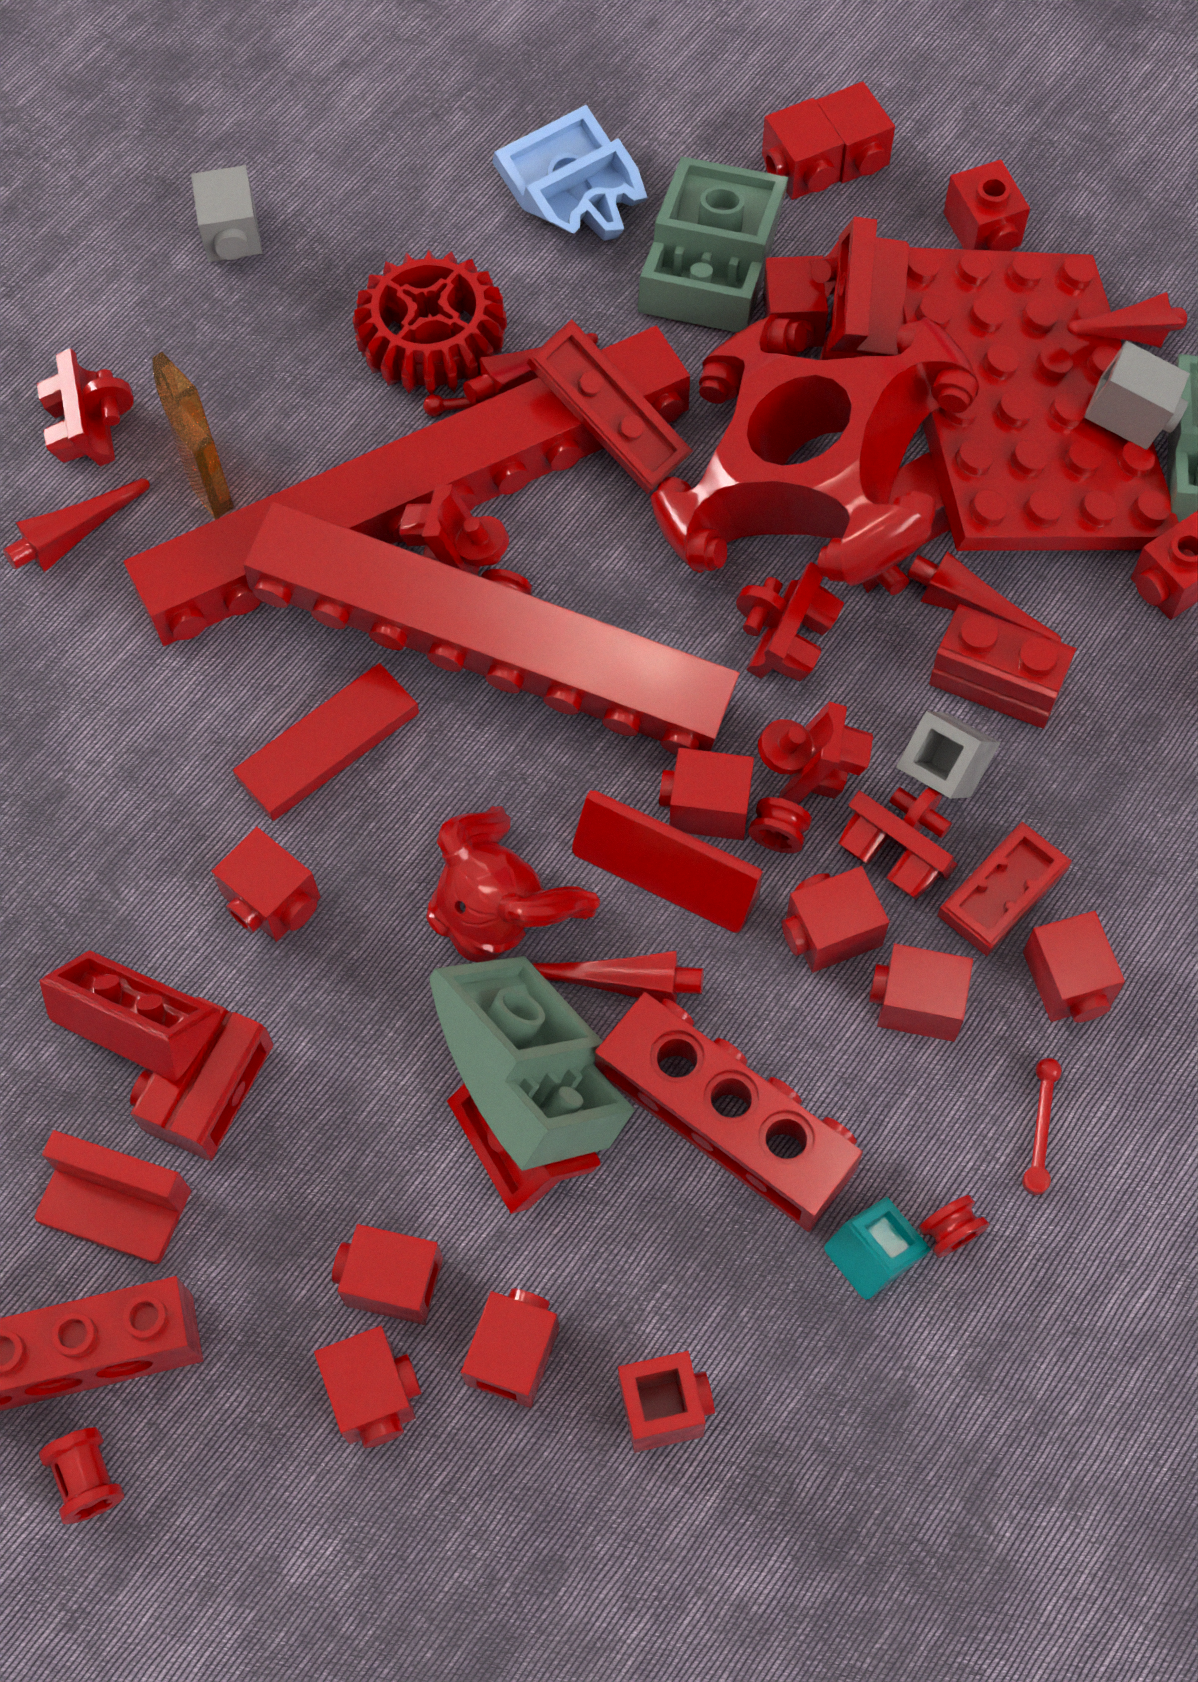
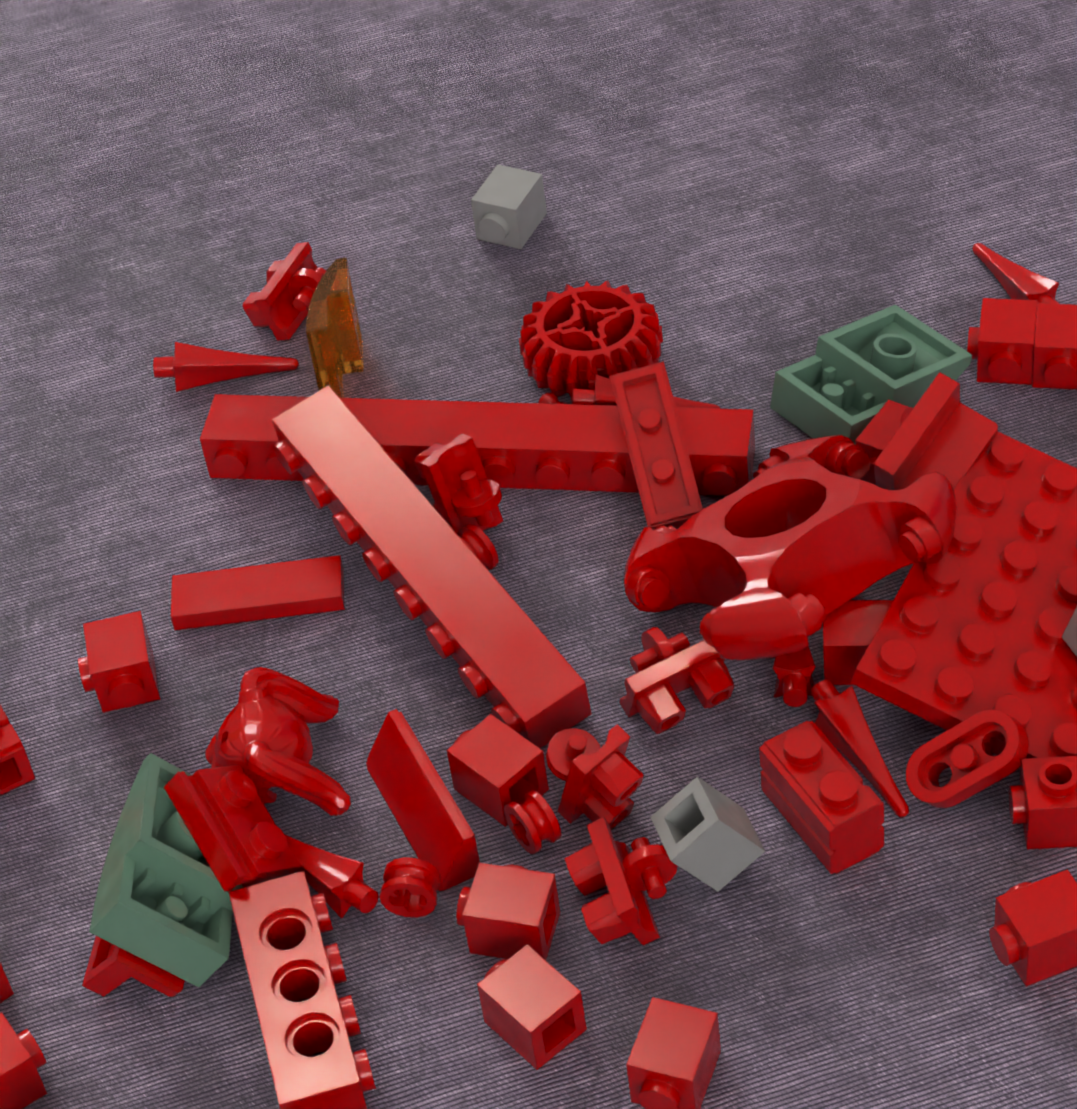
camera: 40 degrees right, 20 degrees down
(545, 989) = (231, 826): none -> red plate
(572, 174) = (796, 282): light blue plate -> none
(728, 947) = (410, 887): none -> red bush
(767, 86) = (1015, 279): none -> red piece
(1004, 888) = (675, 968): red plate -> none
(1092, 569) = (969, 755): none -> red plate

